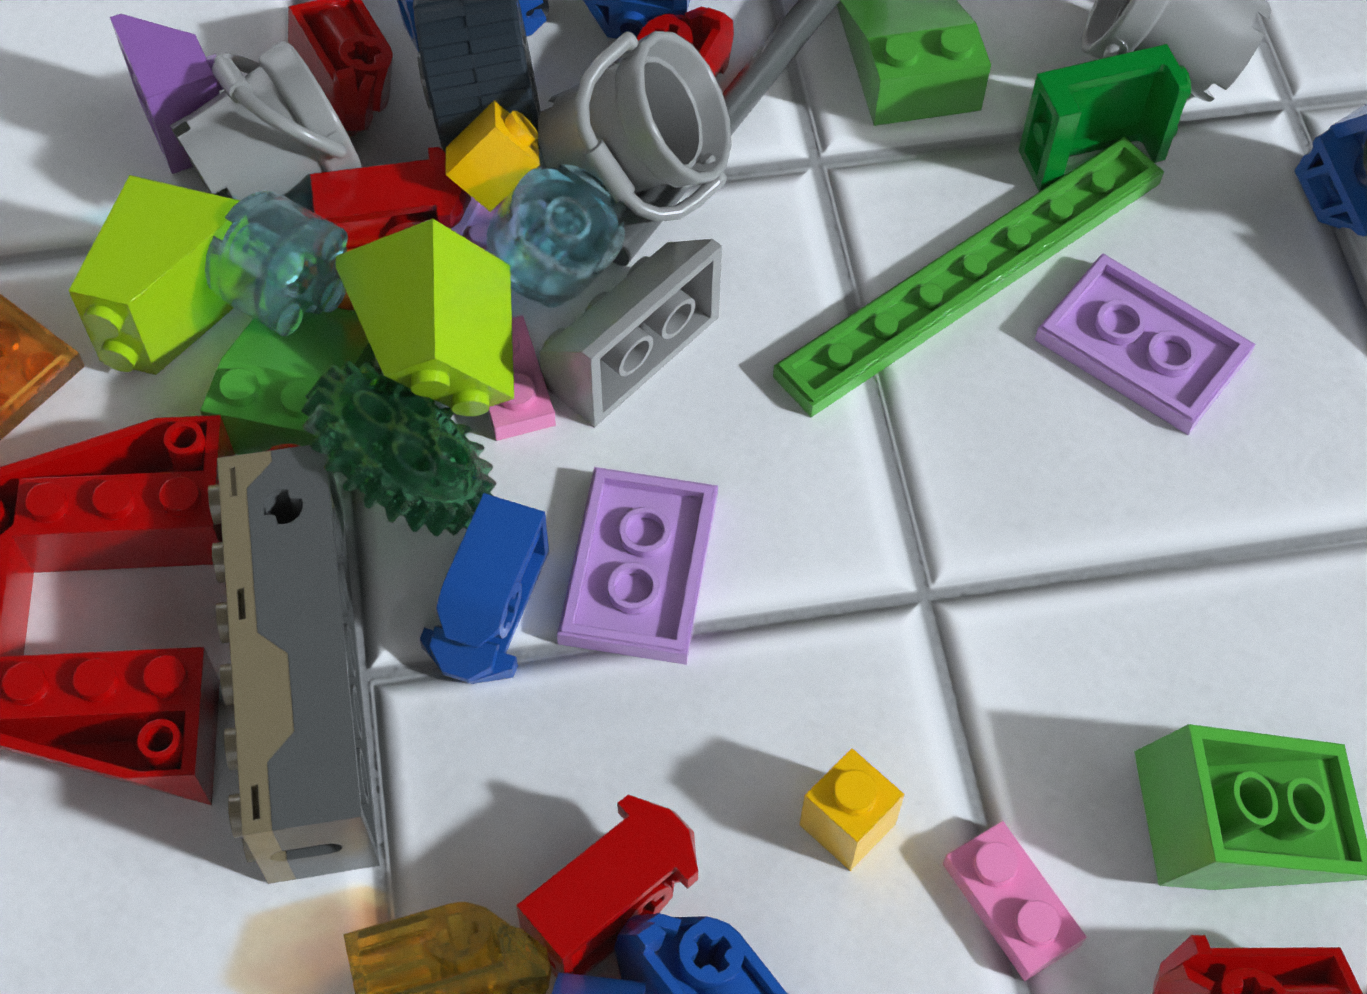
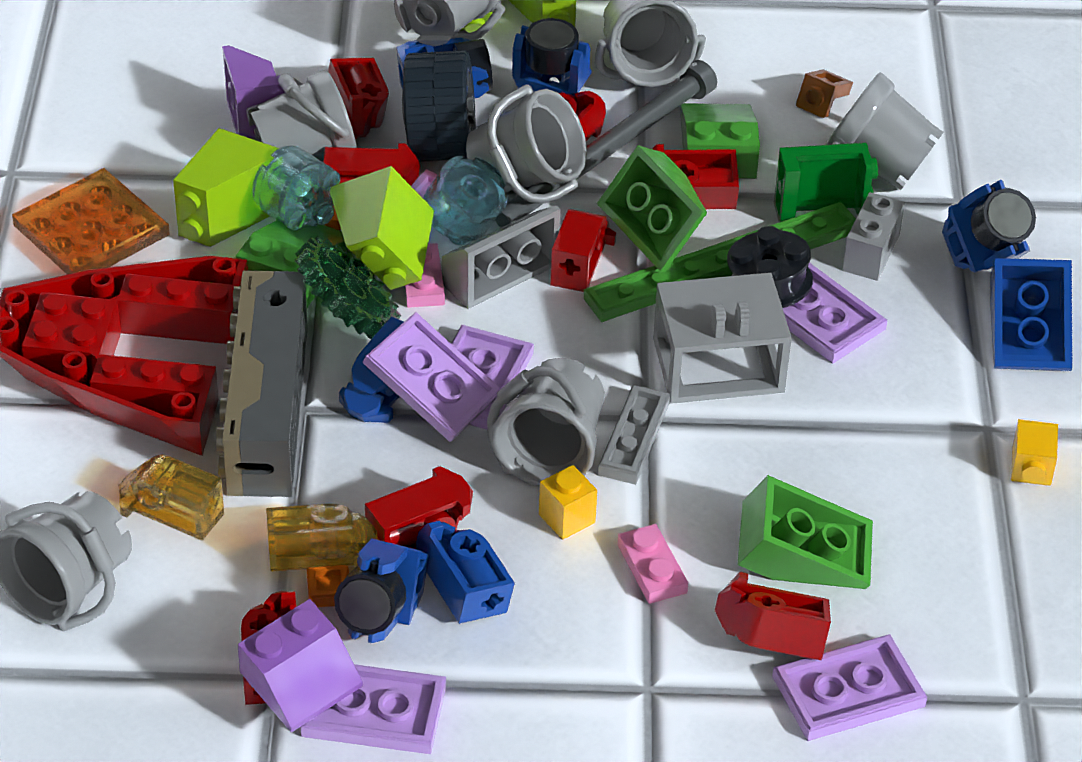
camera: 10 degrees right, 15 degrees down
(171, 921) = (173, 495): none -> clear yellow piece
(493, 155) = (436, 147): yellow brick -> none
(575, 602) = (432, 376): none -> lavender tile
(751, 292) = (579, 249): none -> red piece
(793, 663) = (548, 422): none -> light grey piece
(861, 205) = (653, 205): none -> bright green slope
(897, 131) = (711, 174): none -> red piece
(918, 636) = (634, 434): none -> light grey tile
(1020, 418) = (721, 316): none -> light grey piece
(1063, 289) = (775, 253): none -> black wheel
(1196, 196) = (873, 236): none -> light grey brick

